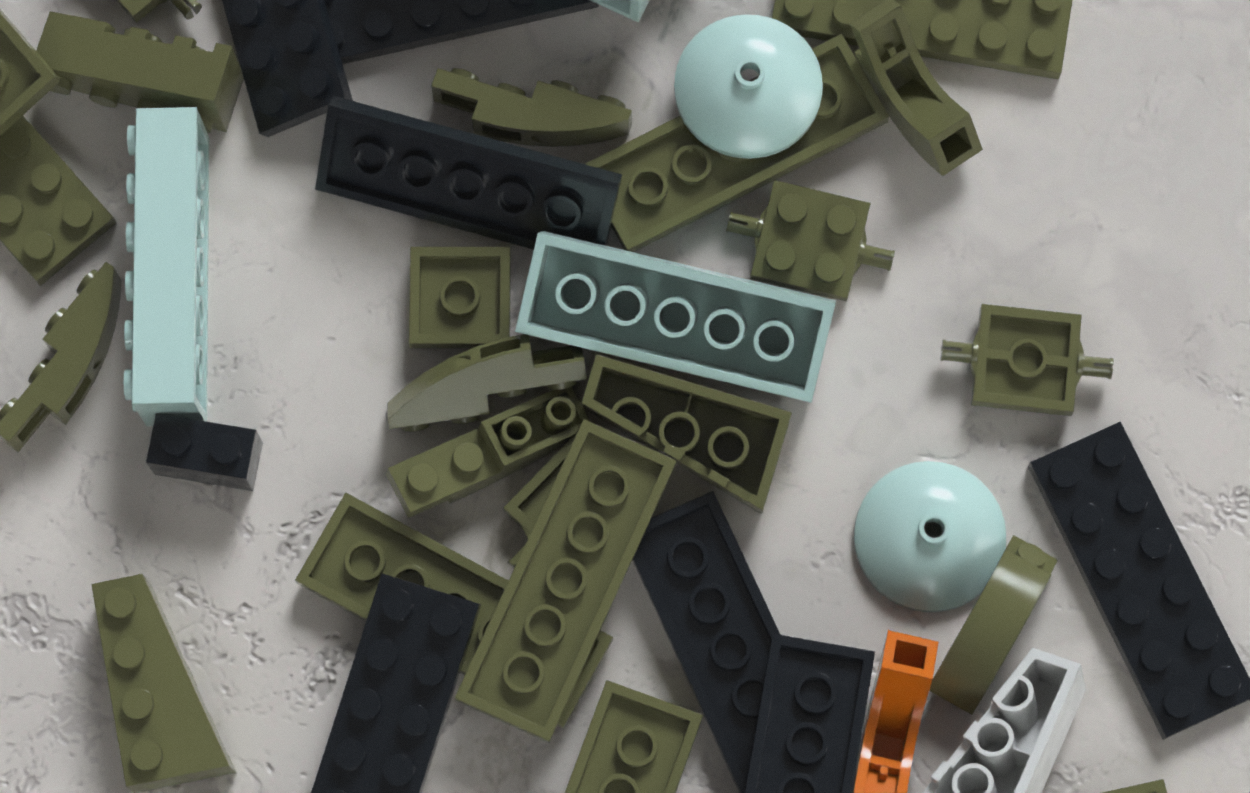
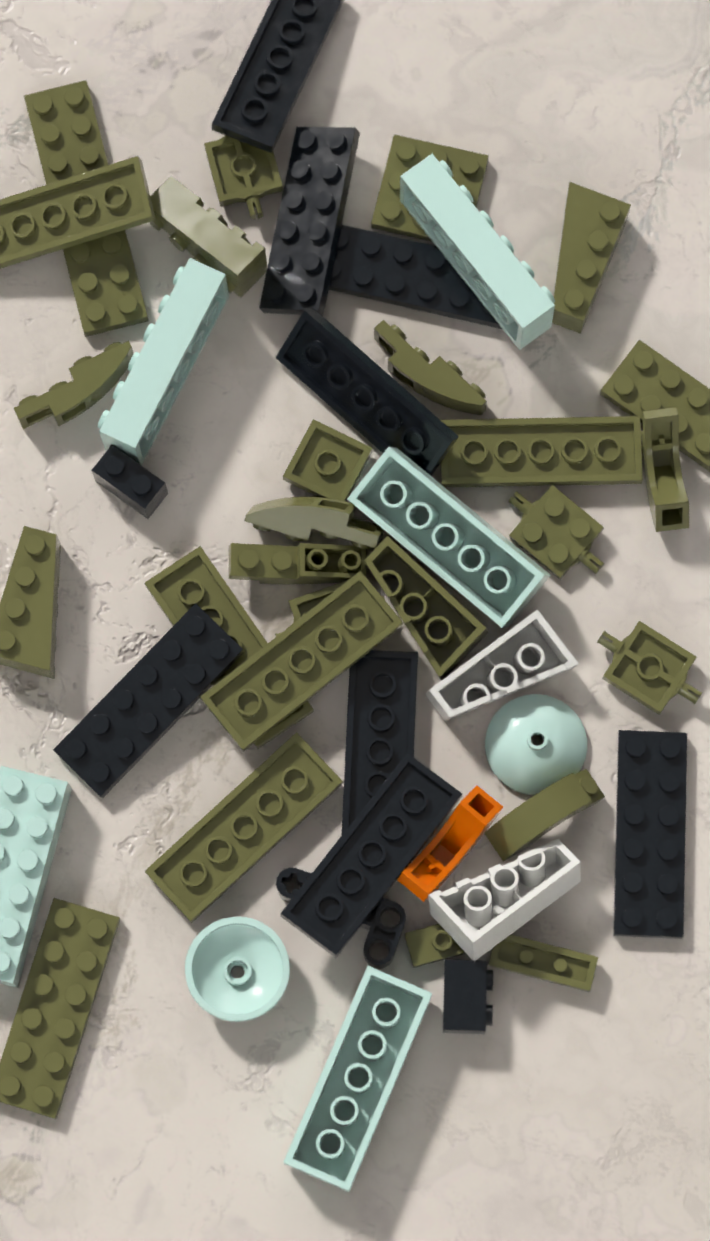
camera: 30 degrees right, 0 degrees up
(744, 115) = (561, 440): light aqua dish -> none
(843, 446) = (509, 664): none -> white wedge

